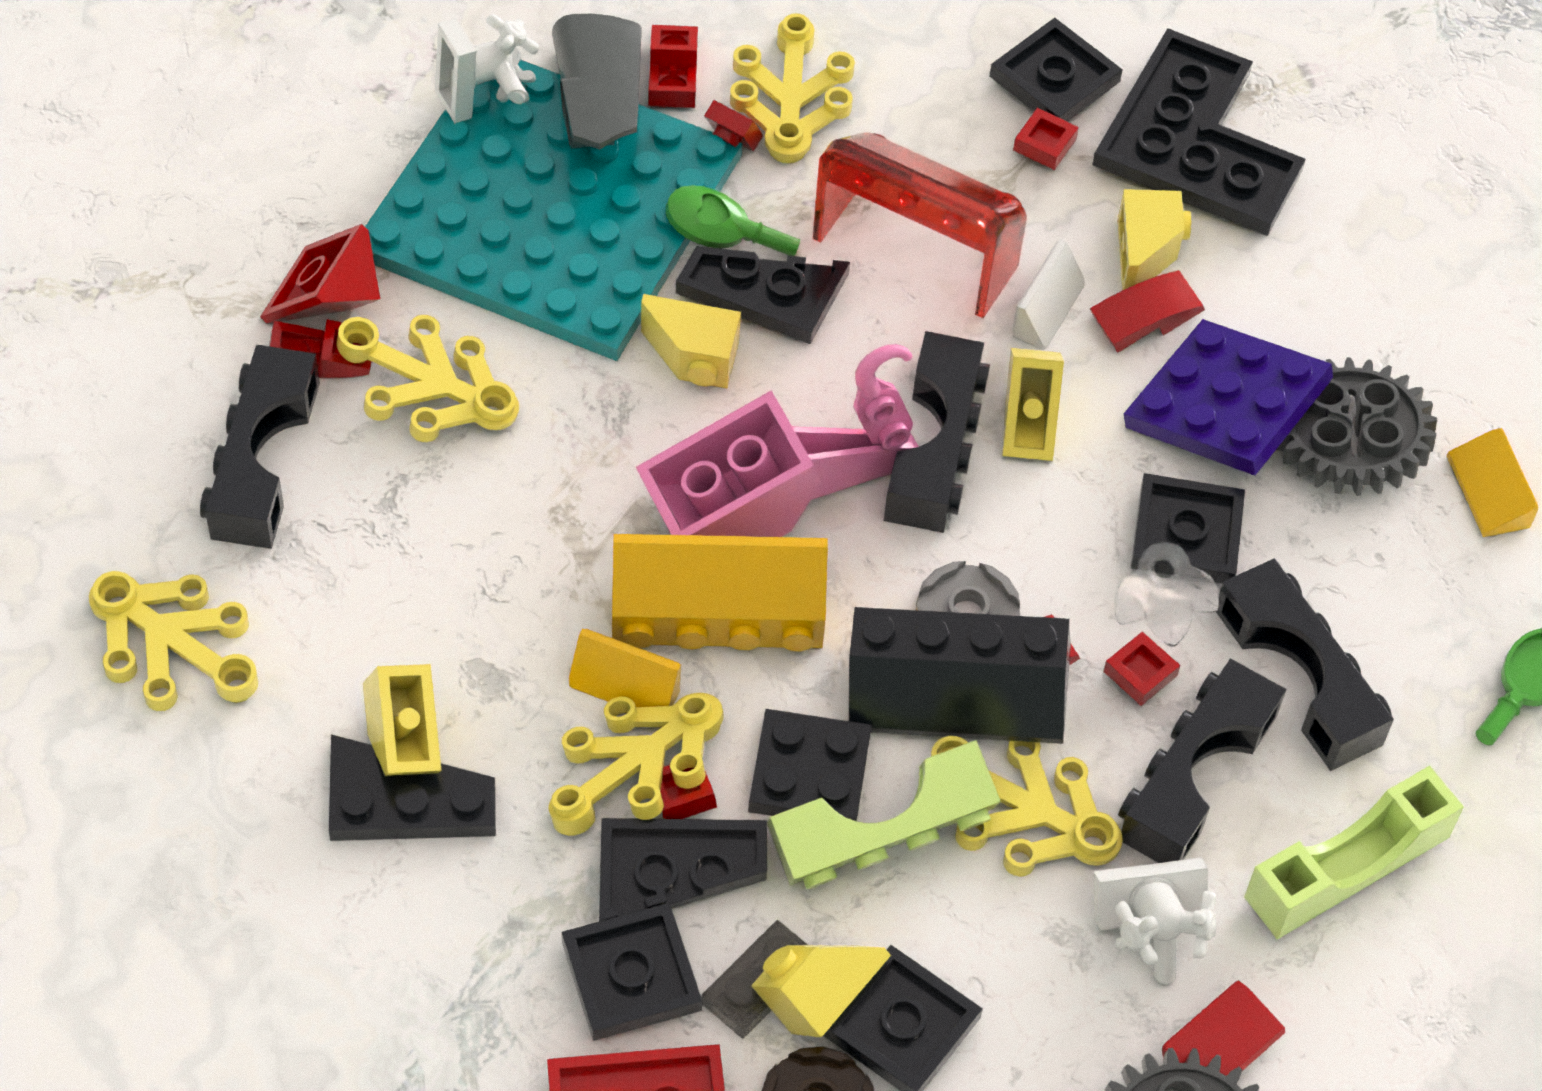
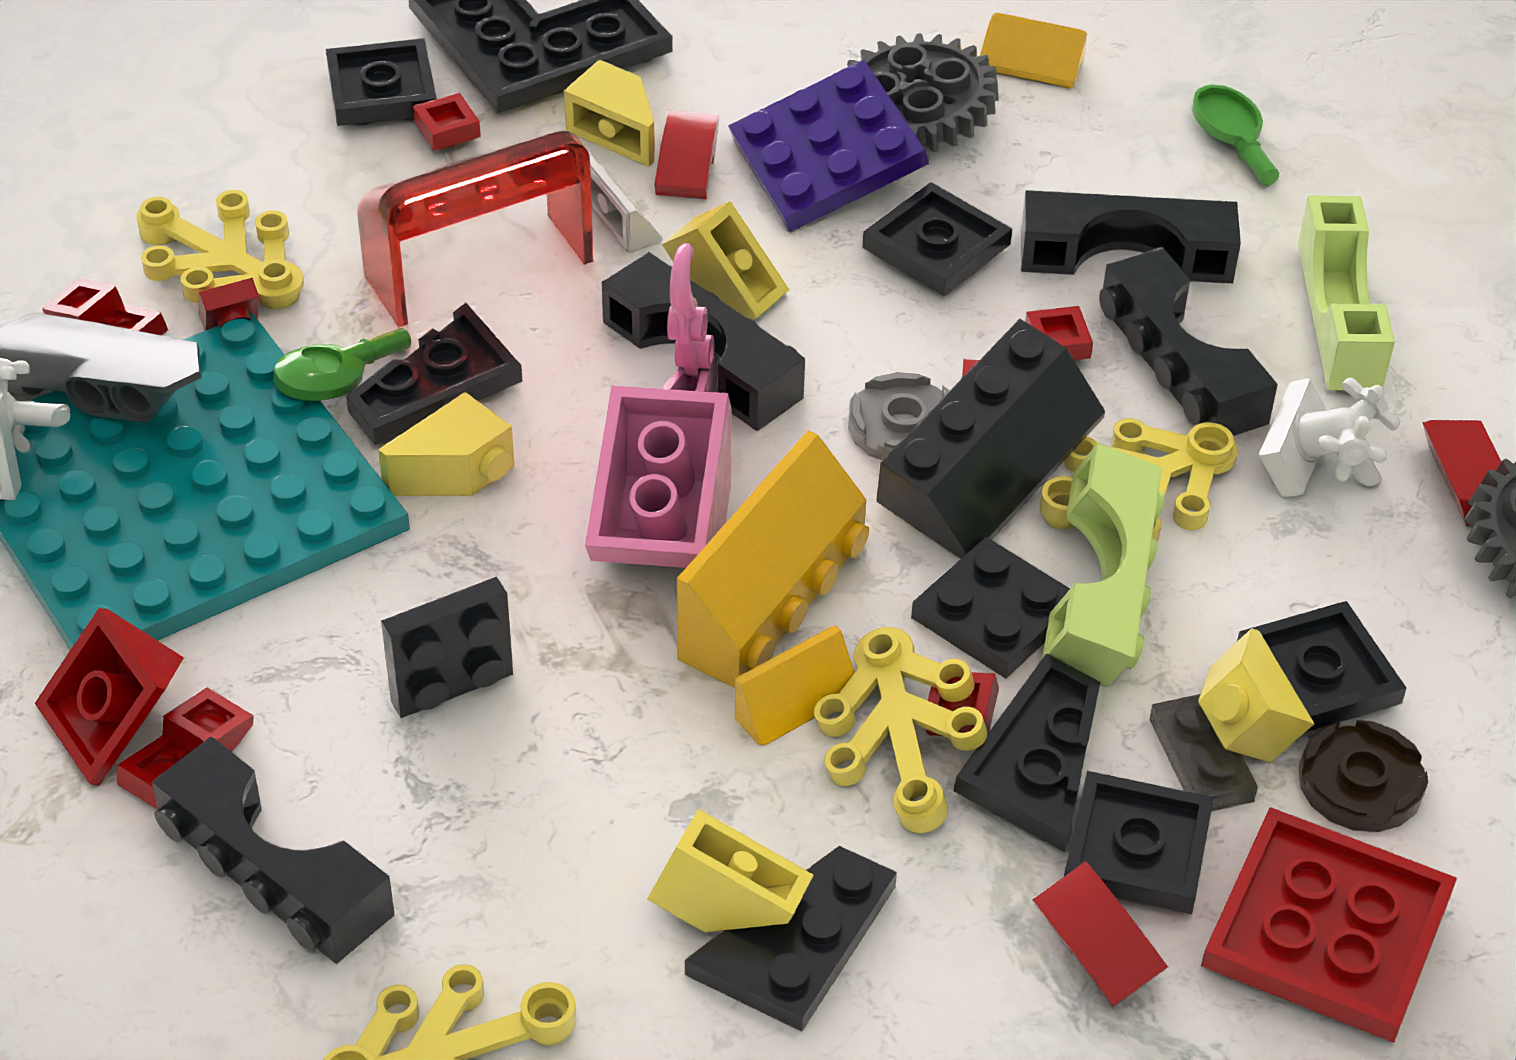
camera: 55 degrees left, 10 degrees down
(431, 379) = (225, 694): light yellow plant -> none
(487, 441) = (448, 647): none -> black plate
(515, 984) = (1100, 934): none -> red slope
(1165, 601) = (1001, 281): clear plate -> none

